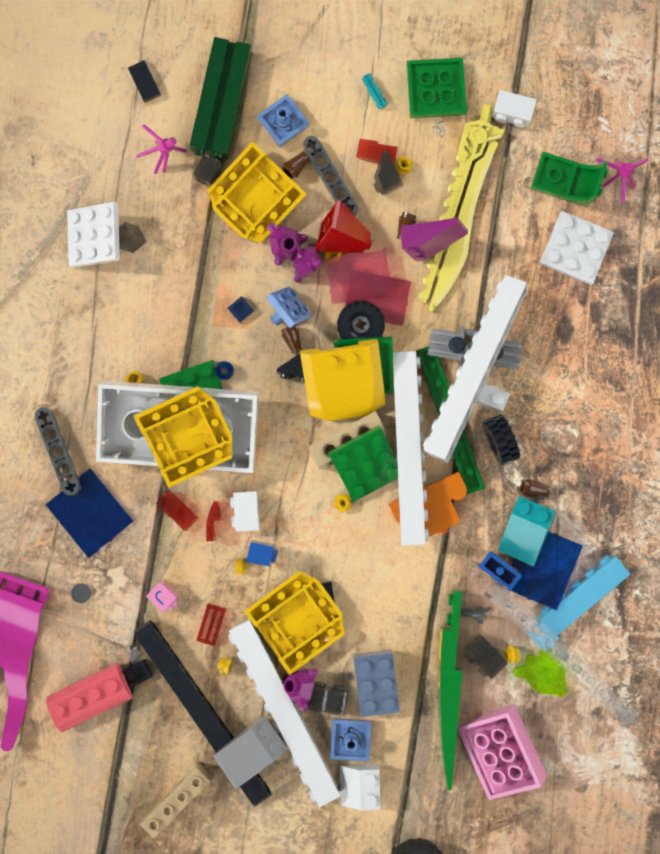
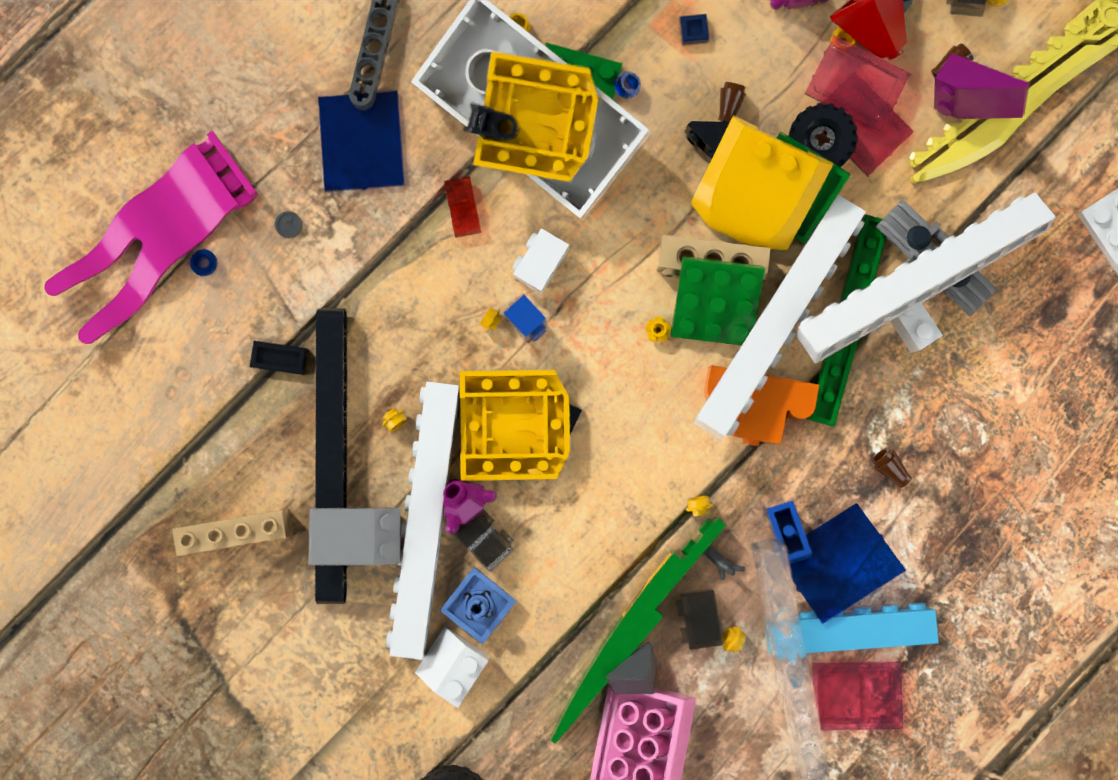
camera: 40 degrees right, 0 degrees up
(40, 651) = (198, 256): none -> clear blue plate
(88, 697) = (215, 347): coral container -> none
(133, 654) = (299, 333): clear plate -> none
(159, 459) = (490, 122): none -> black piece
(163, 596) = (378, 292): bright pink brick -> none
(214, 515) = (500, 241): clear red slope -> none
(216, 608) = (429, 349): clear red tile -> none
(288, 308) = (751, 61): medium blue plate -> none
(305, 262) = (807, 23): magenta rock -> none
(376, 683) = (553, 561): sand blue brick -> none
(438, 589) = (699, 505): none -> yellow plate
(469, 715) = (636, 673): none -> dark grey slope
(501, 439) = (895, 381): black bush -> none
(527, 530) = (851, 508): teal slope -> none
(543, 674) = (752, 688): clear neon green tile -> none
(606, 635) = (858, 695): none -> clear pink piece

